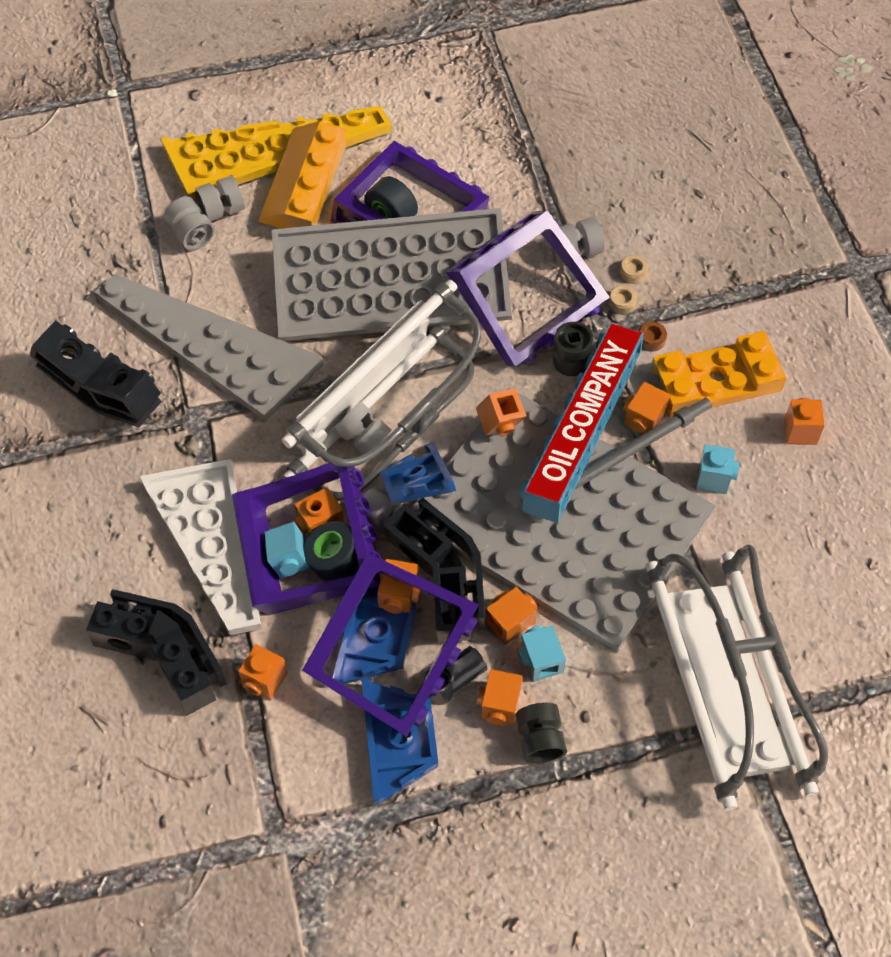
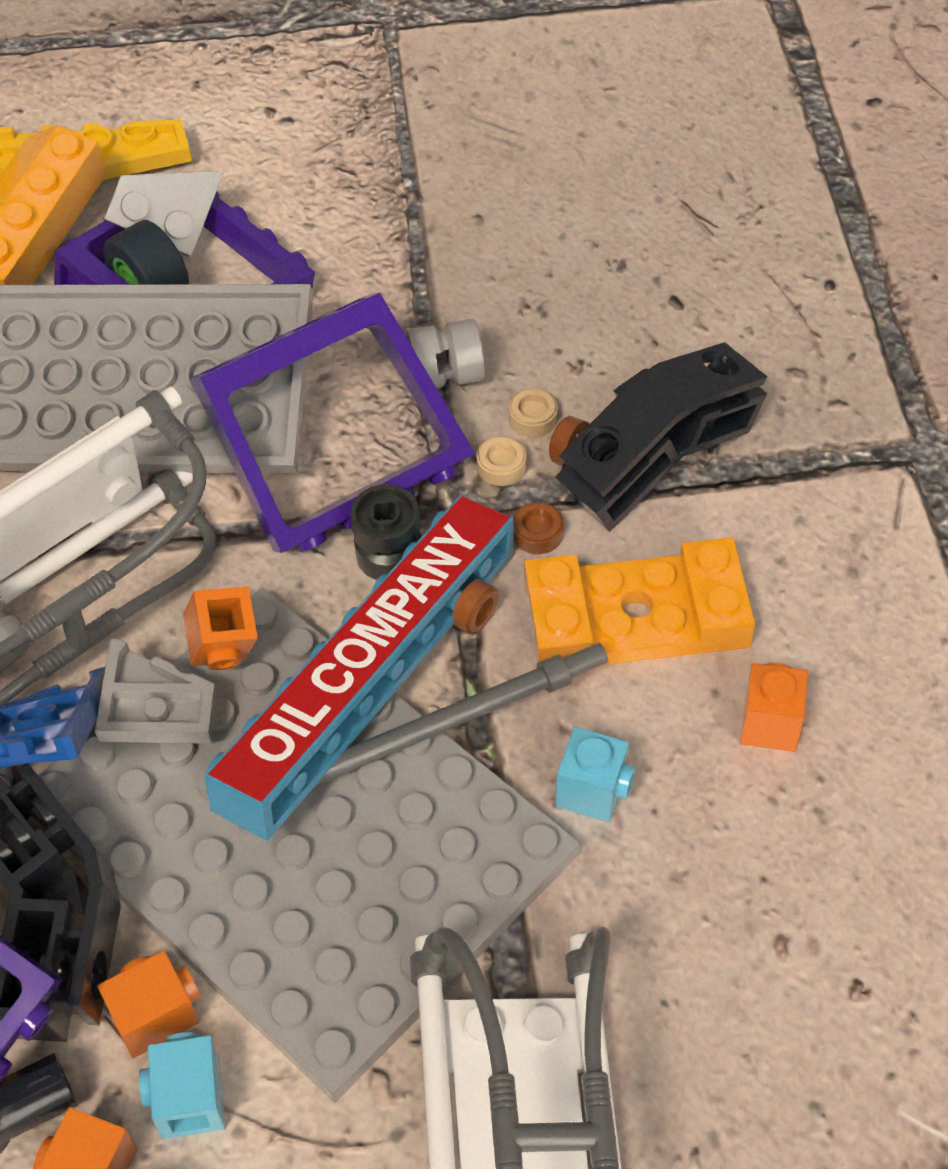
camera: 10 degrees right, 5 degrees down
(391, 160) = (169, 200): none -> wing
(472, 457) = (152, 701): none -> light grey wing
(630, 384) = (475, 606): none -> dark orange tile
(646, 408) = (493, 649): orange brick -> none
(660, 284) = (563, 435): none -> dark orange tile
(711, 270) = (657, 422): none -> black brick

